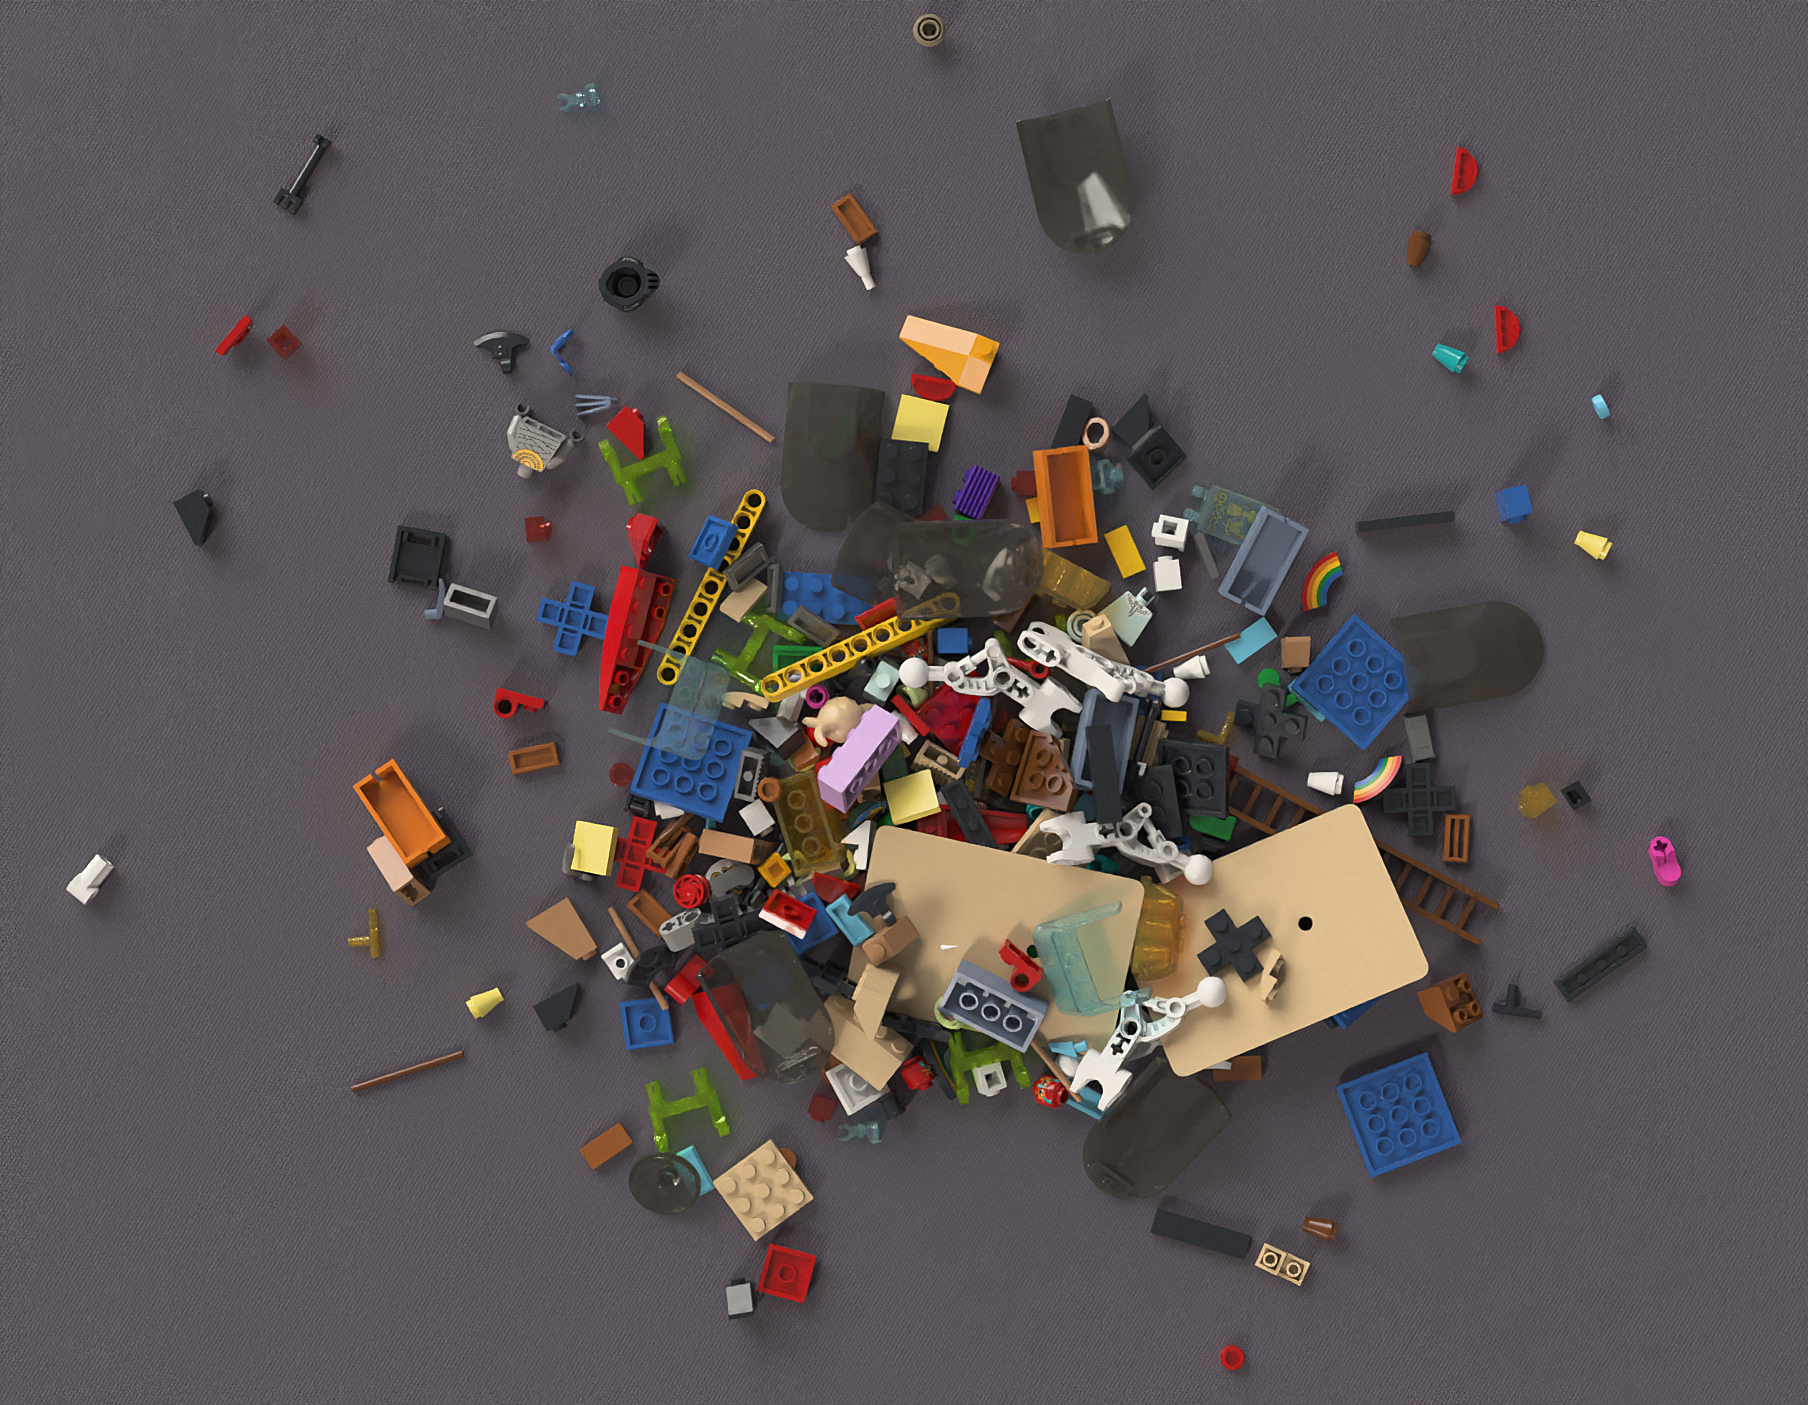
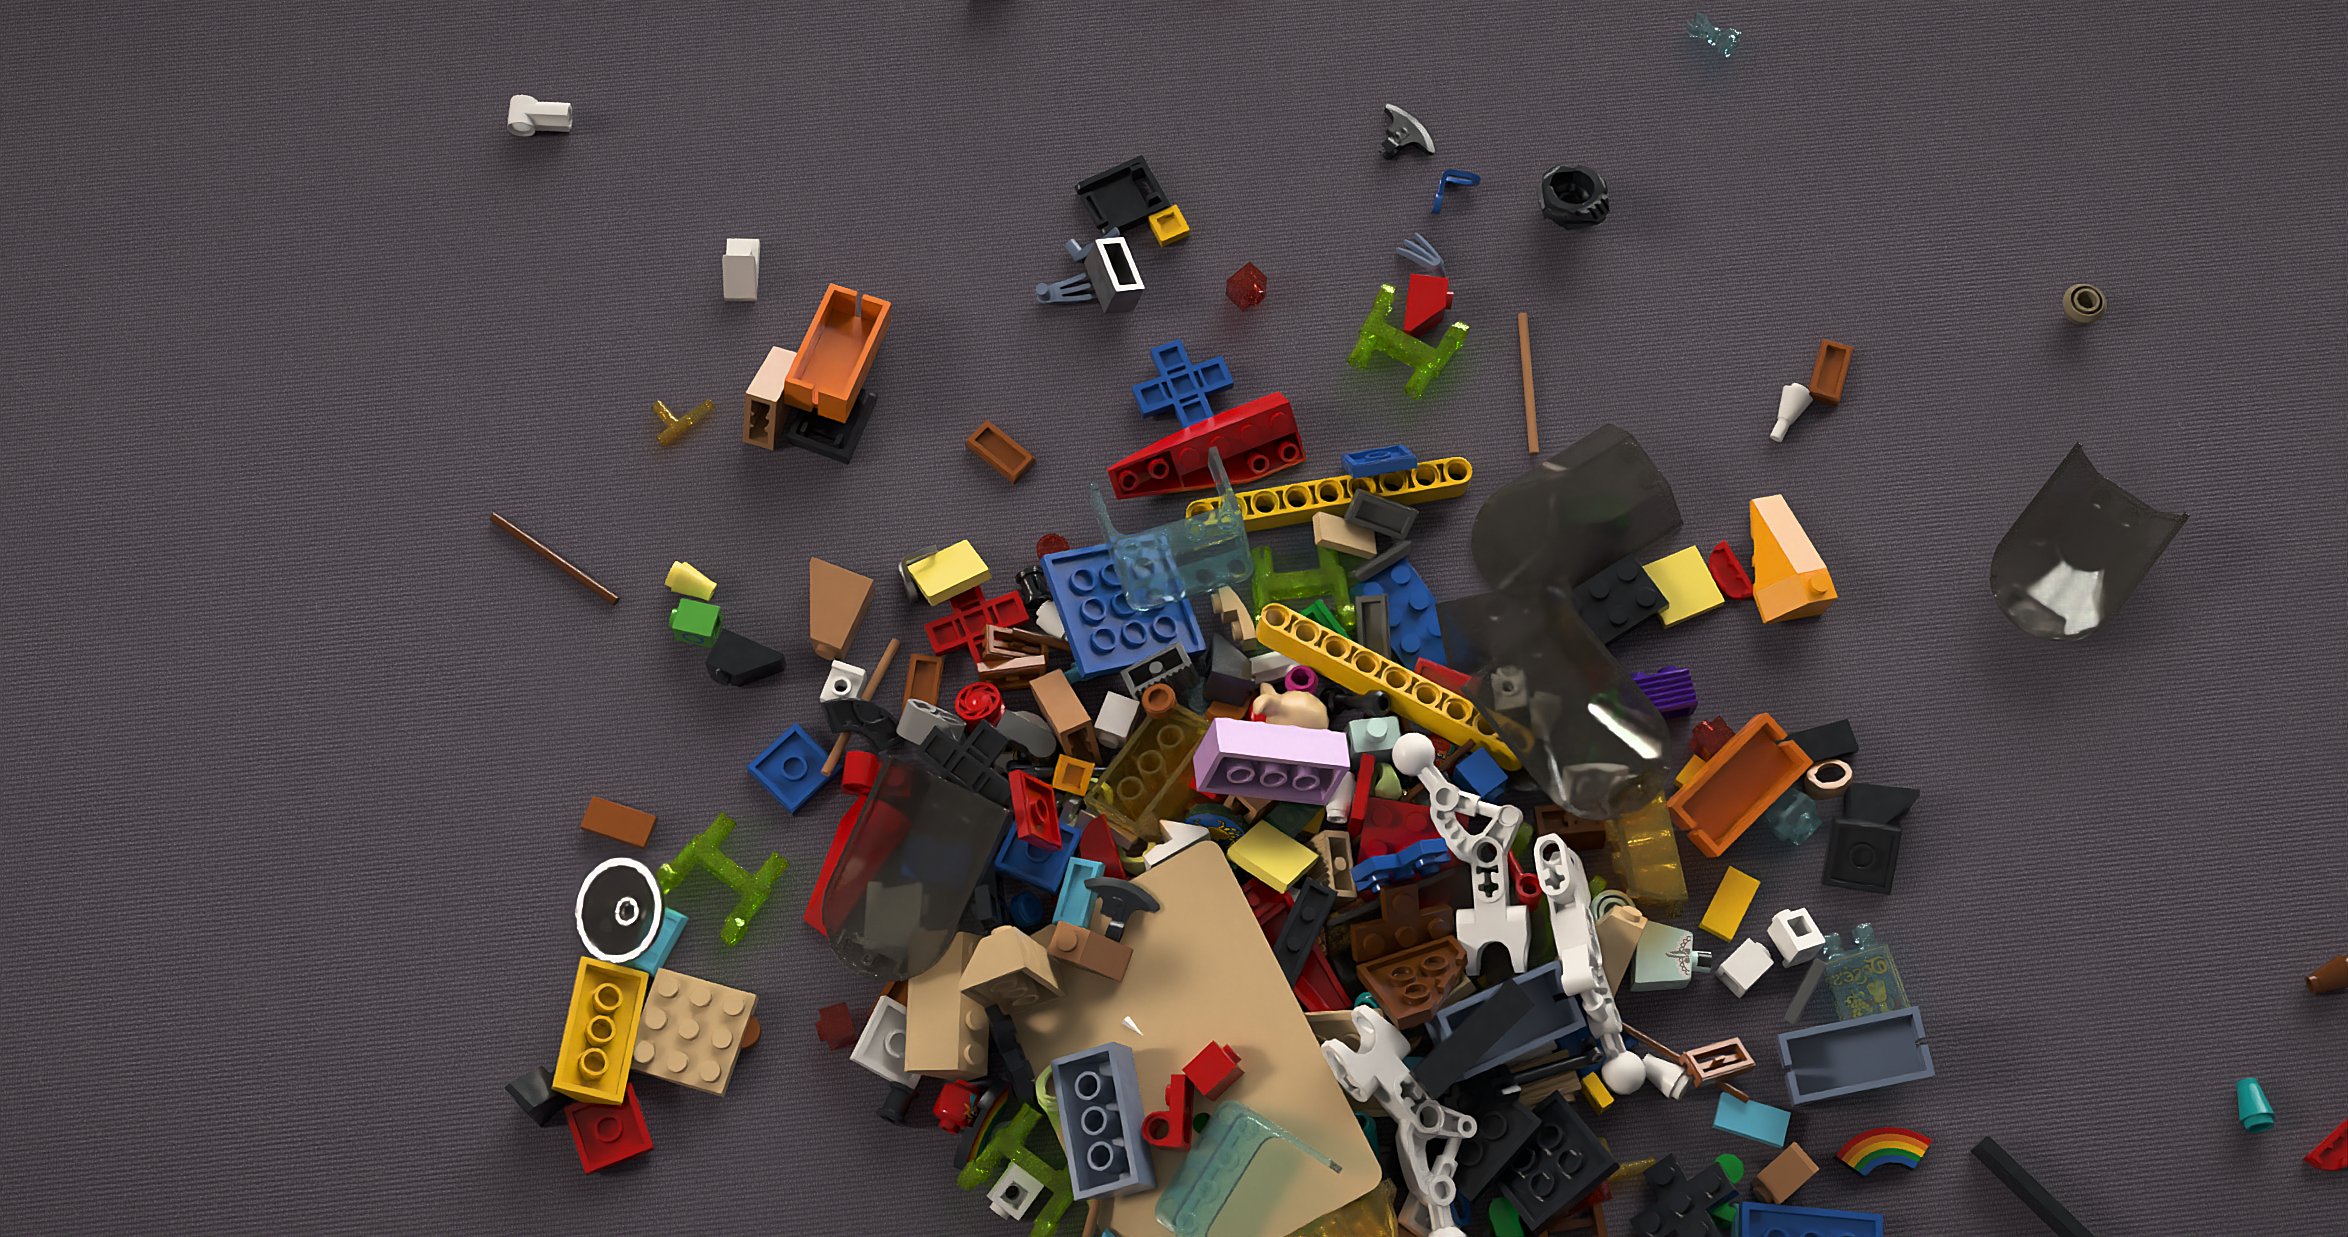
camera: 50 degrees right, 20 degrees down
(293, 827) = (741, 269): none -> white slope
(452, 649) = (1057, 294): none -> sand blue piece
(457, 543) = (1168, 225): none -> yellow tile
(514, 1017) = (696, 622): none -> bright green brick
(530, 703) = (1048, 391): red plate -> none
(537, 444) = (1336, 228): light grey torso -> none
(644, 537) = (1330, 389): red wedge -> none
(728, 1241) = (600, 1032): none -> yellow slope
(832, 952) = (1026, 909): none -> blue tile
(871, 1130) = (849, 1104): clear light blue piece -> none
(1012, 926) = (1214, 1070): none -> red brick
(1203, 652) = (1702, 1079): none -> dark orange tile

